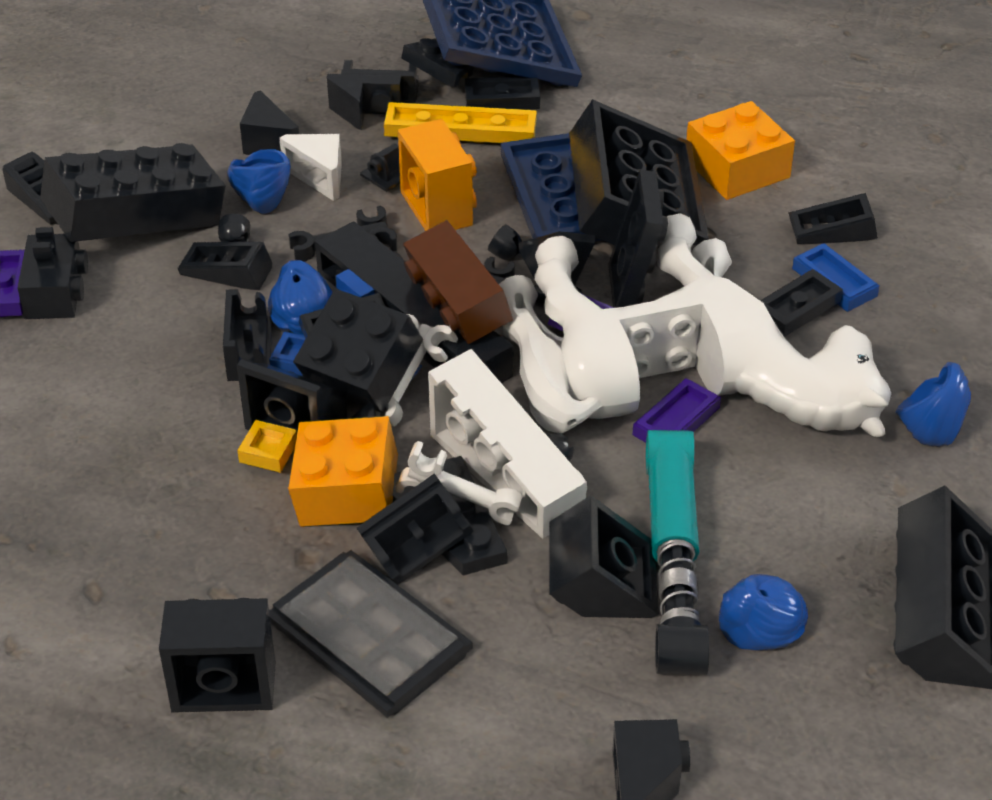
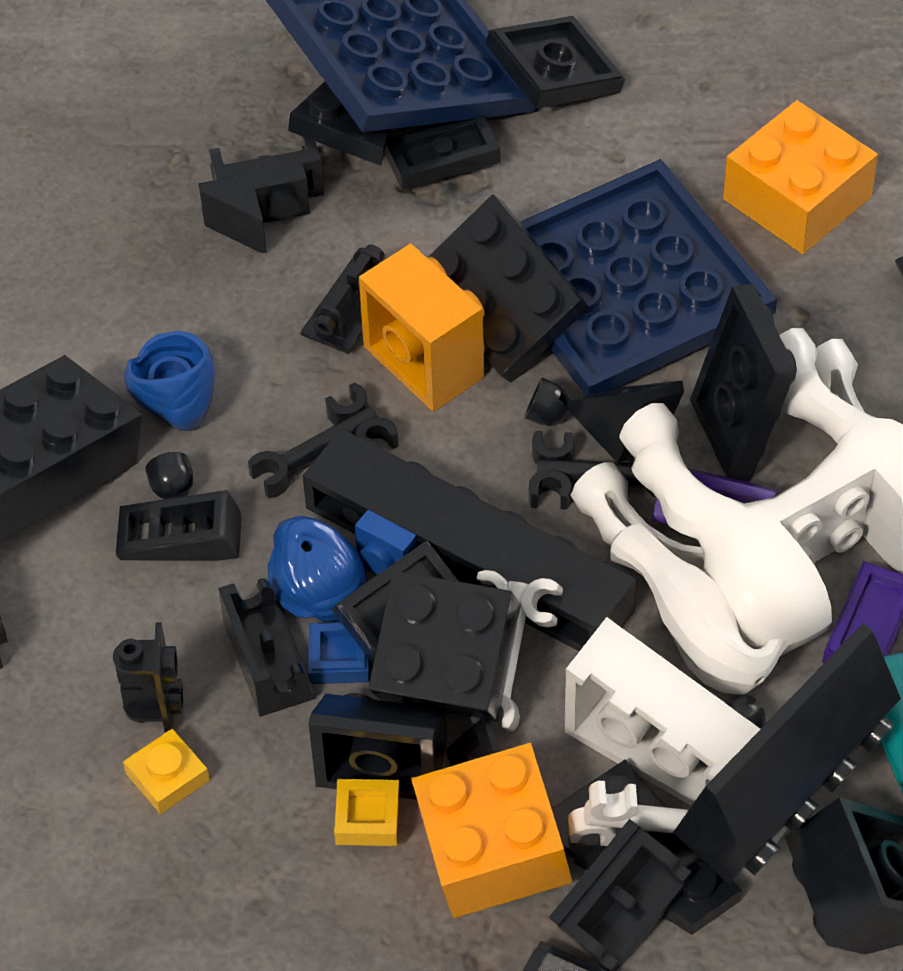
camera: 15 degrees left, 10 degrees up
(148, 395) = (166, 771): none -> yellow plate
(156, 331) = (149, 679): none -> black hinge
(264, 125) = (148, 293): black slope -> none
(315, 160) = (237, 331): white slope -> none
(456, 282) = (536, 508): reddish brown brick -> none
(469, 123) = (395, 216): yellow plate -> none
(507, 170) = (516, 282): none -> black plate
(562, 456) = (791, 759): none -> black slope
(601, 59) = (554, 61): none -> black tile
(606, 160) = (674, 255): black slope -> none

